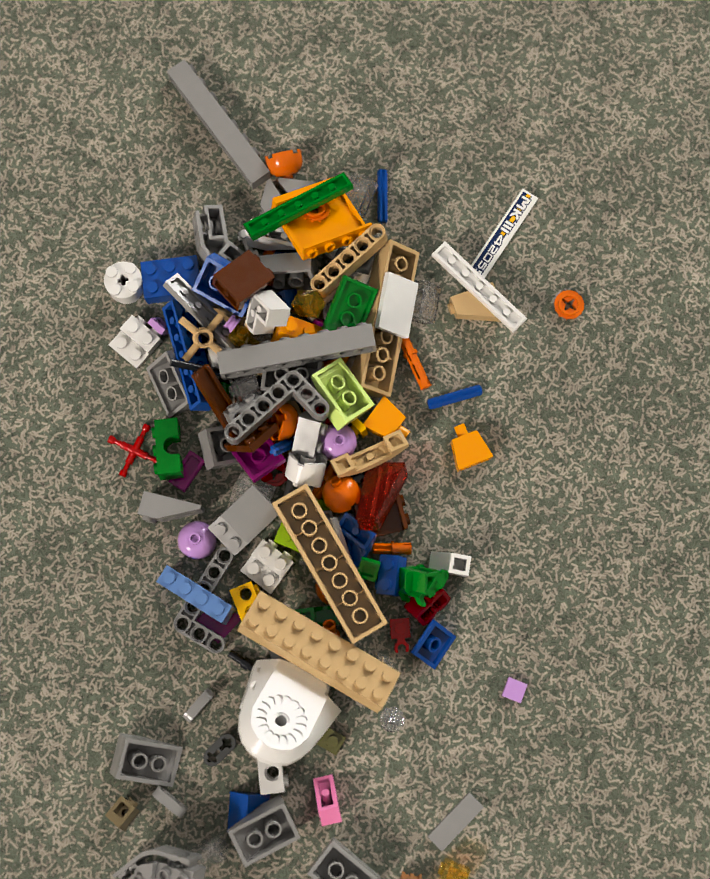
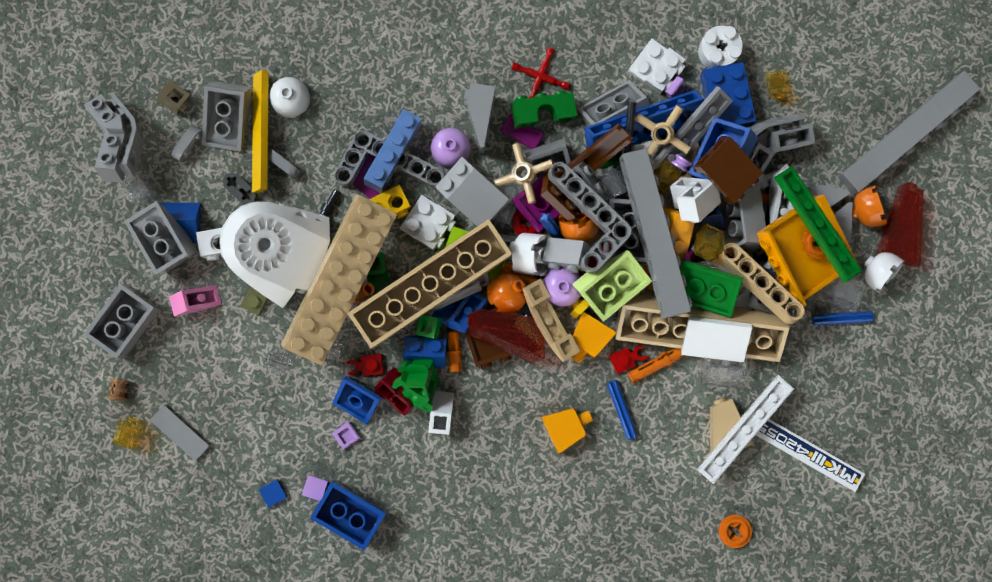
camera: 85 degrees right, 5 degrees up
(133, 695) = (289, 97): none -> white cylinder
(163, 234) = (777, 85): none -> clear yellow bracket
(165, 725) = (260, 132): none -> yellow tile
(231, 477) = (517, 170): none -> tan bar
(312, 137) = (904, 225): none -> clear red slope
(341, 158) = (882, 270): none -> white cylinder
(408, 391) = (624, 359): none -> red plate
(465, 657) = (346, 435): none -> lavender tile
(517, 731) = (273, 493): none -> blue tile
(541, 657) = (348, 514): none -> blue brick

